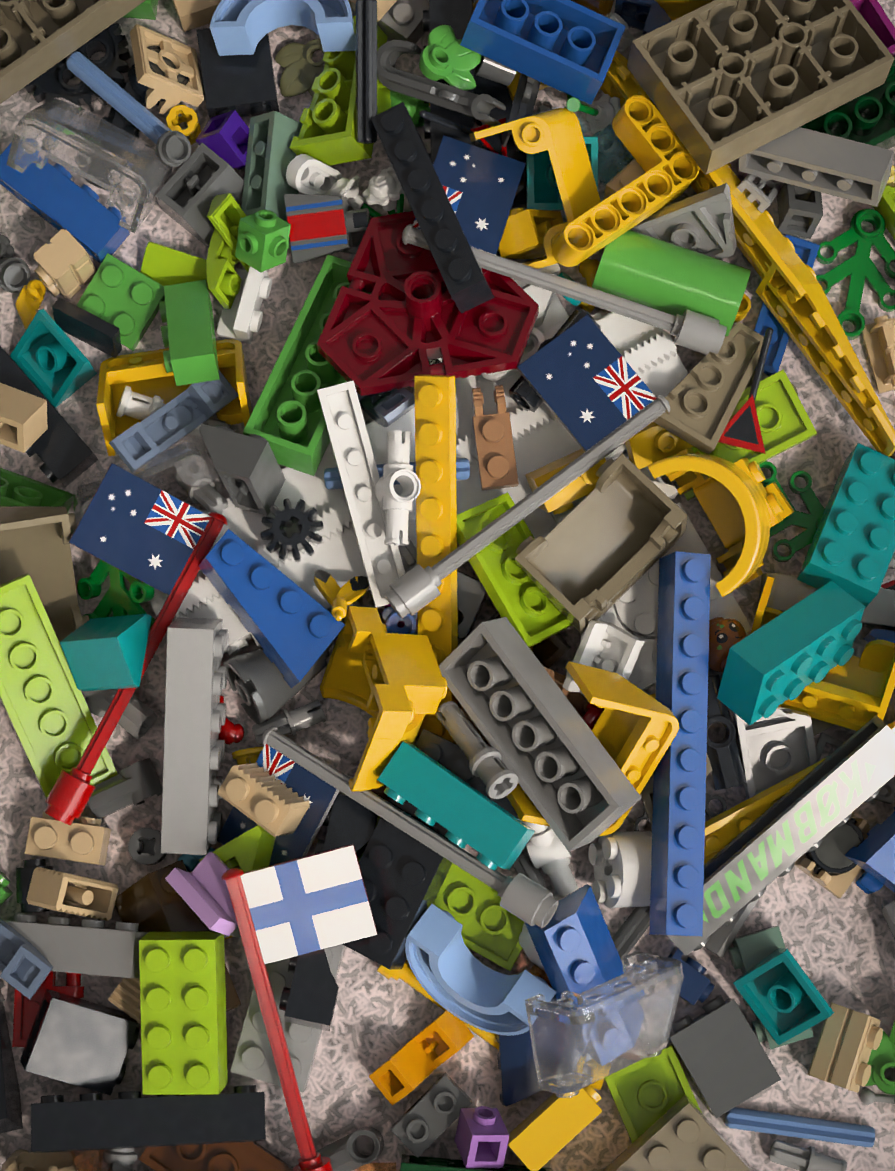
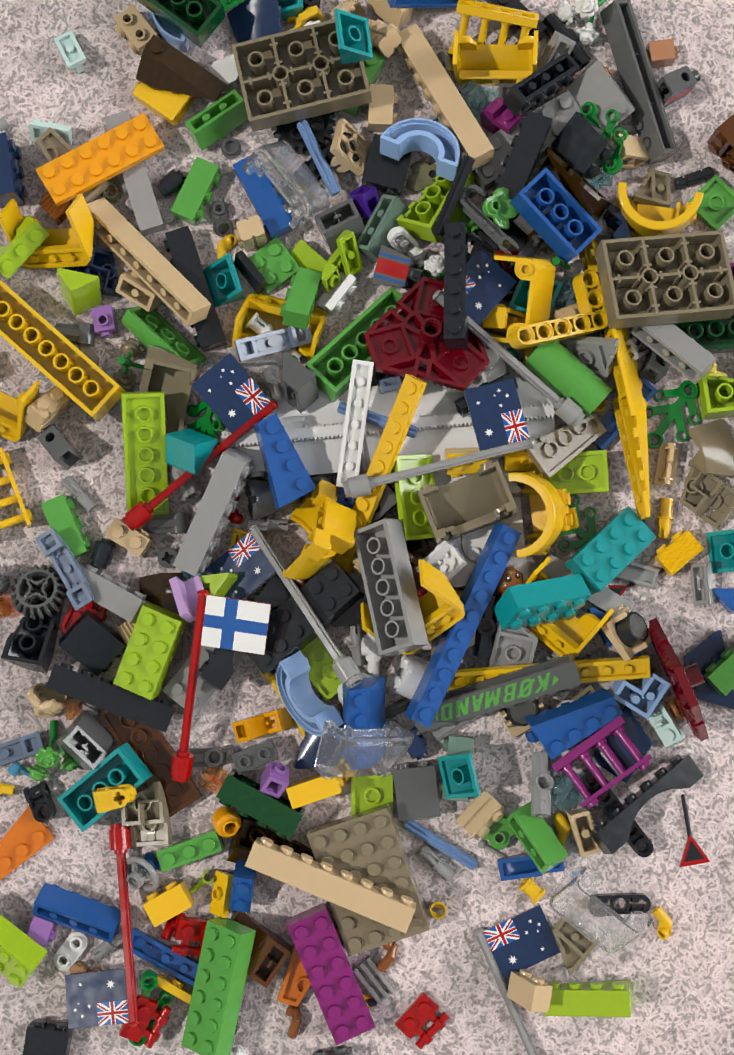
camera: 30 degrees right, 5 degrees up
(72, 894) = (119, 566): tan brick -> none
(173, 148) = (334, 194): dark grey plate -> none
(189, 116) = (351, 185): yellow bush -> none
(262, 240) = (360, 264): bright green brick -> none
(263, 799) = (236, 560): tan brick -> none
(286, 519) = (309, 434): black gear -> none
(337, 596) = (319, 472): yellow piece -> none
(398, 469) = (377, 418): white pin -> none
(455, 806) = (331, 606): teal brick -> none
(483, 760) = (356, 589): light grey pin -> none
(494, 443) = (435, 425): medium nougat hinge -> none
(744, 427) = (572, 472): black piece -> none

